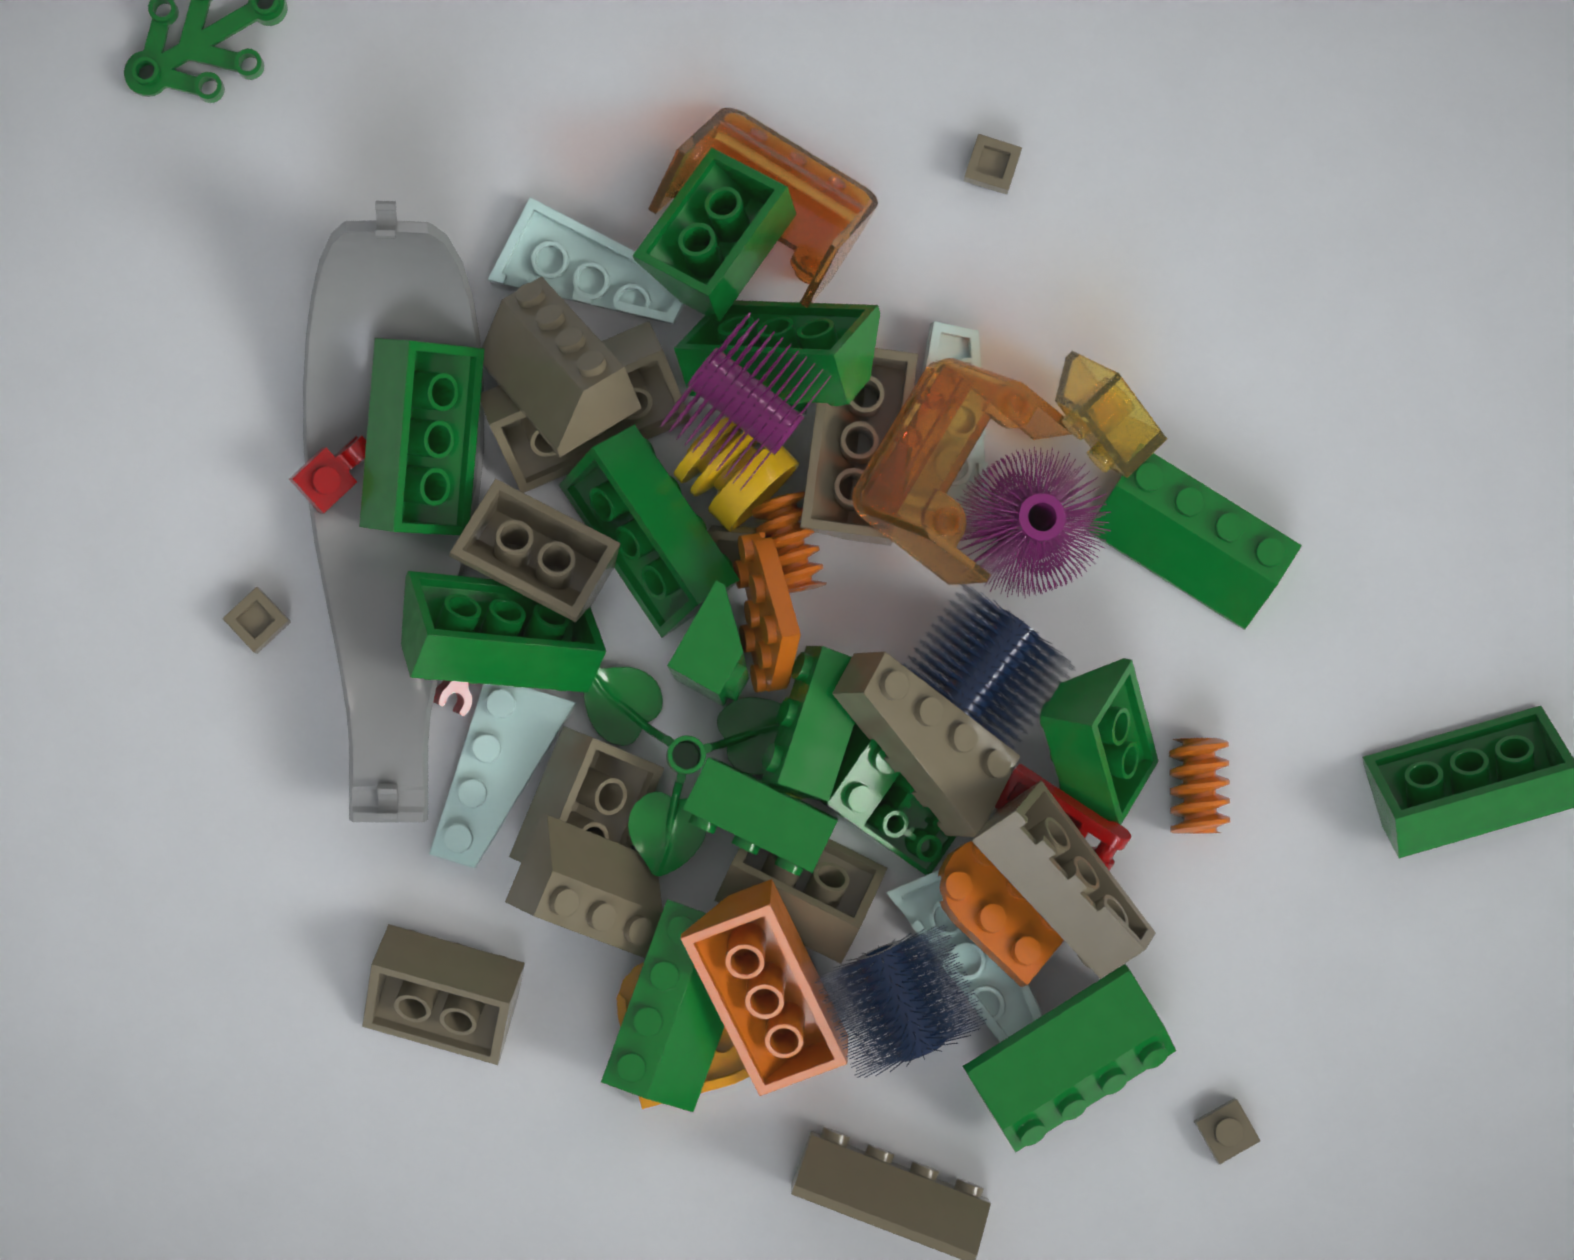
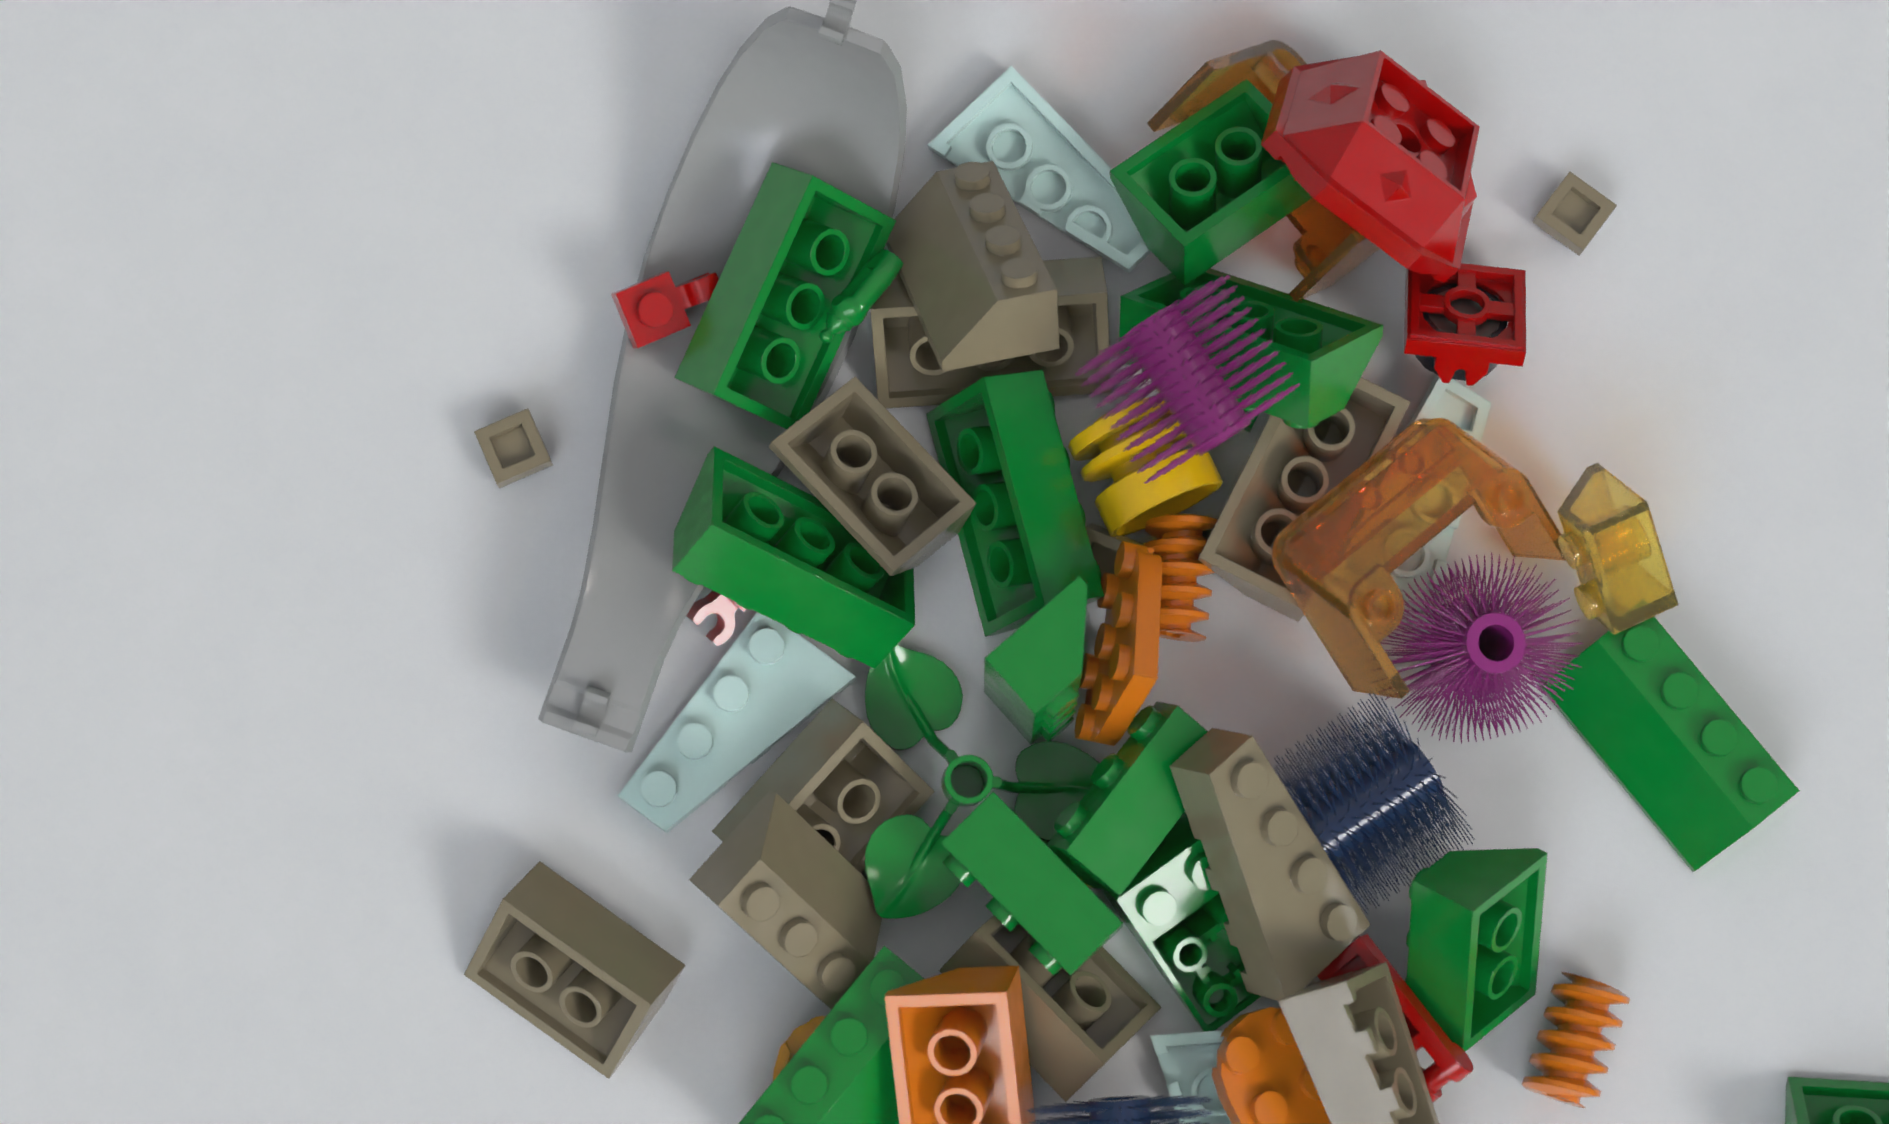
camera: 20 degrees right, 5 degrees down
(478, 415) = (861, 294): none -> green piece
(831, 175) = (1380, 156): none -> red piece
(936, 274) = (1462, 324): none -> red piece

